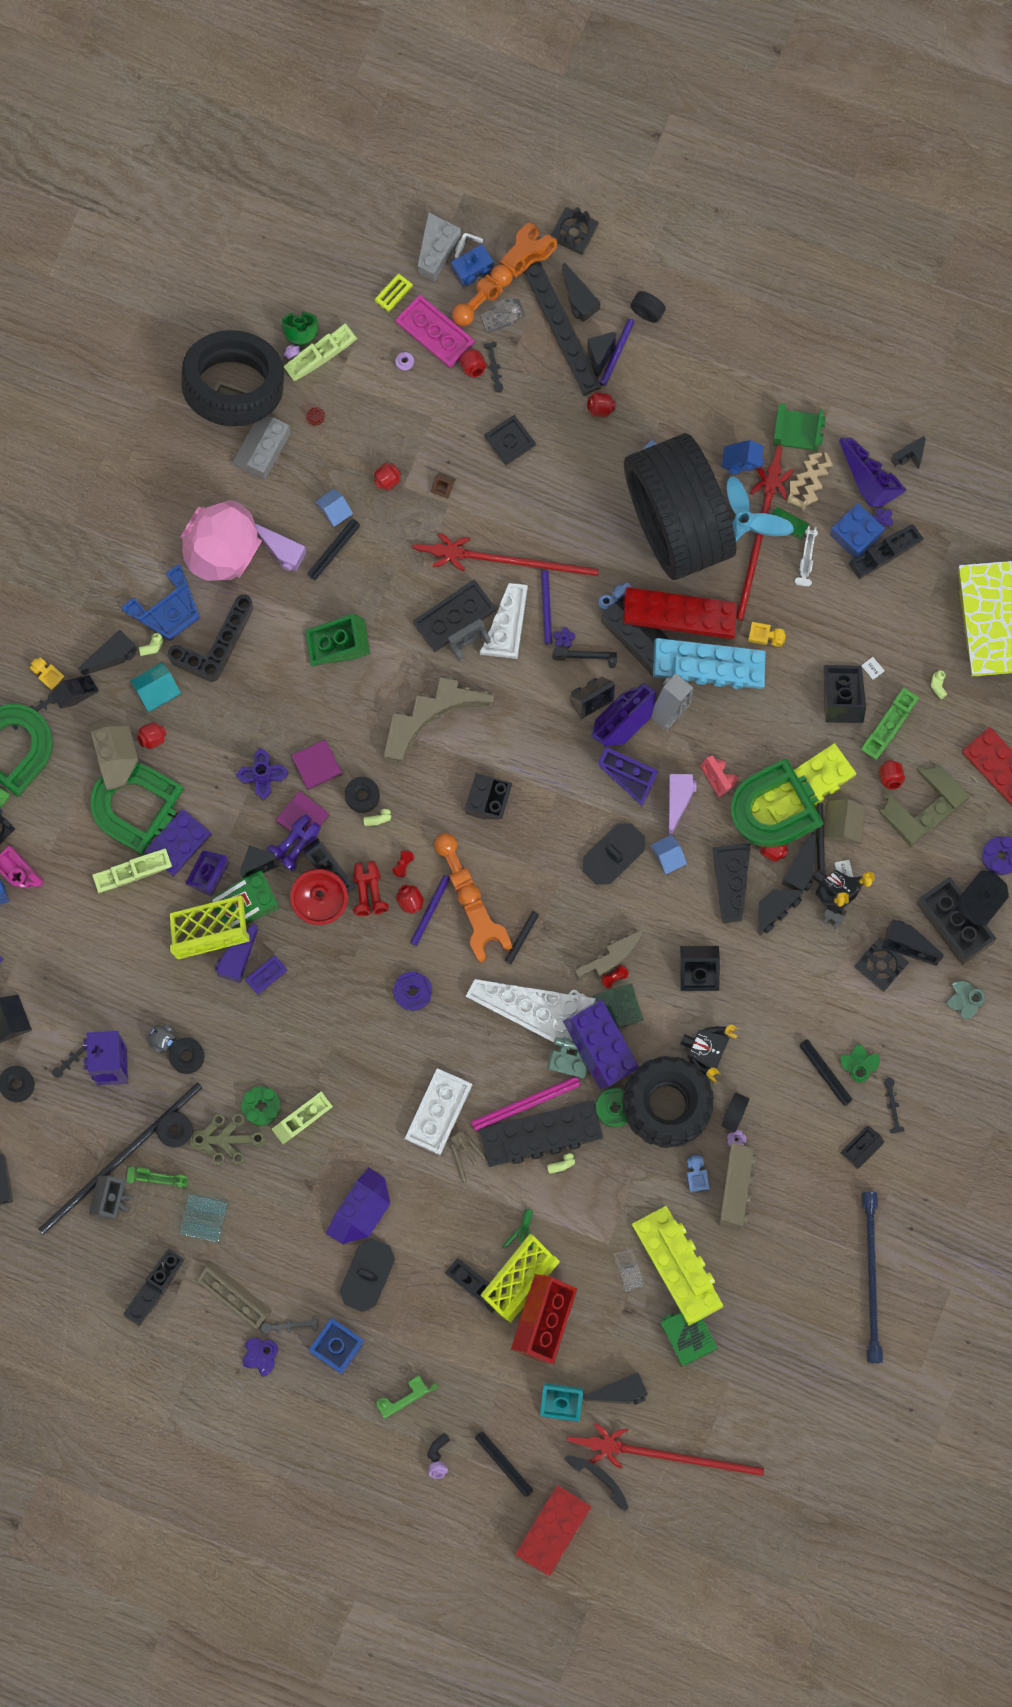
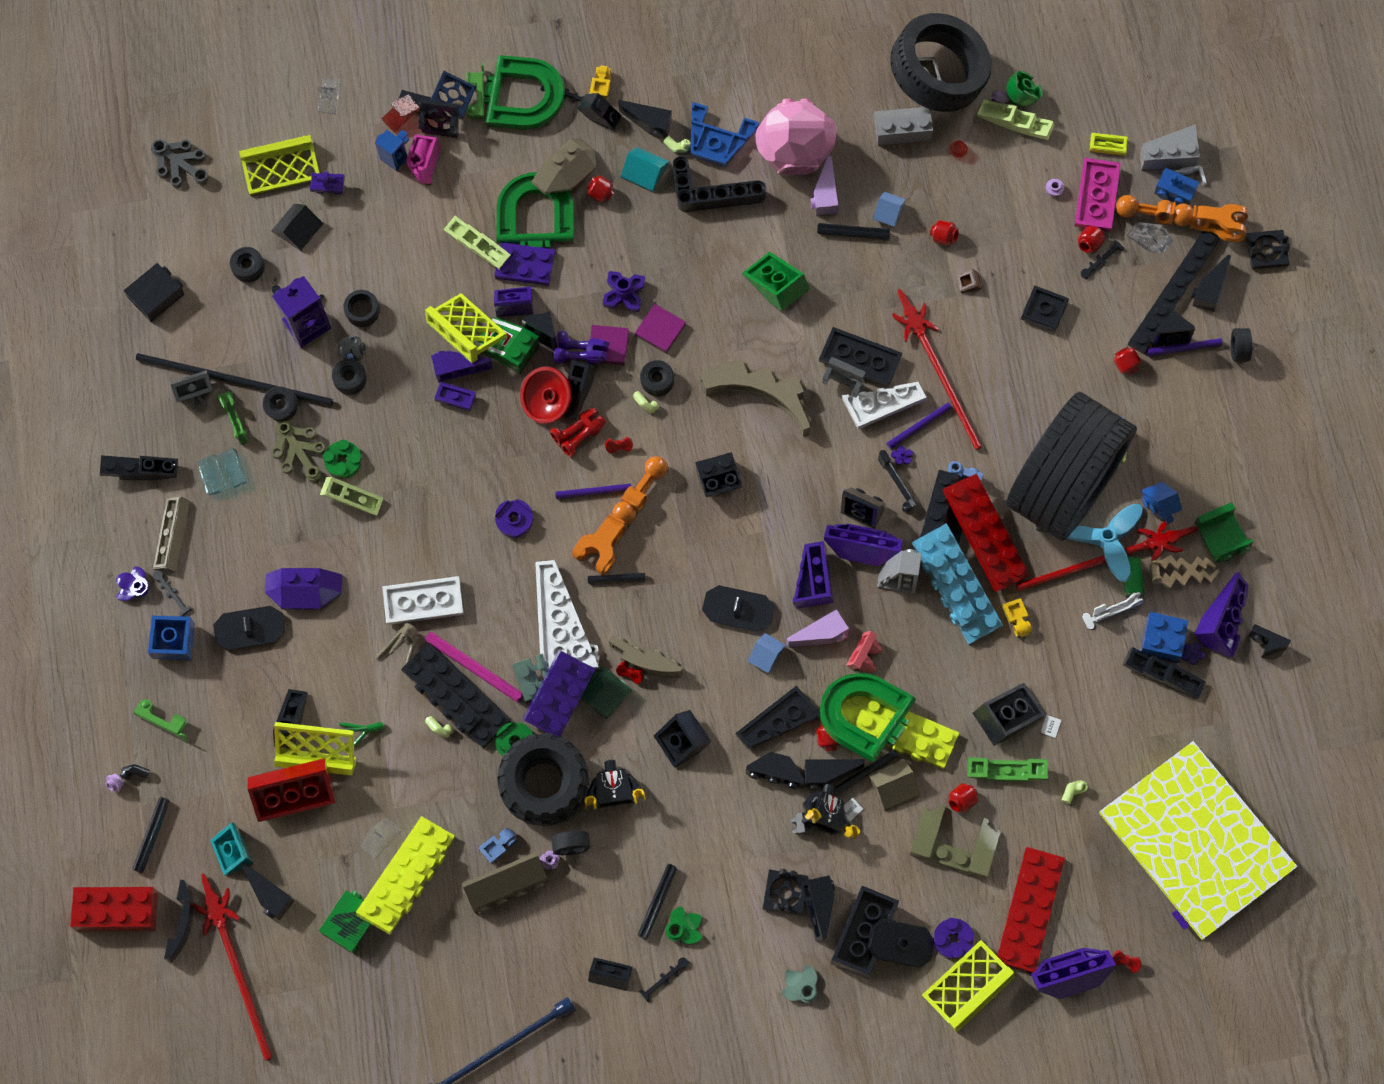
camera: 60 degrees right, 5 degrees down
(127, 992) = (360, 295): none -> black tyre
(409, 898) = (590, 467): red head -> none

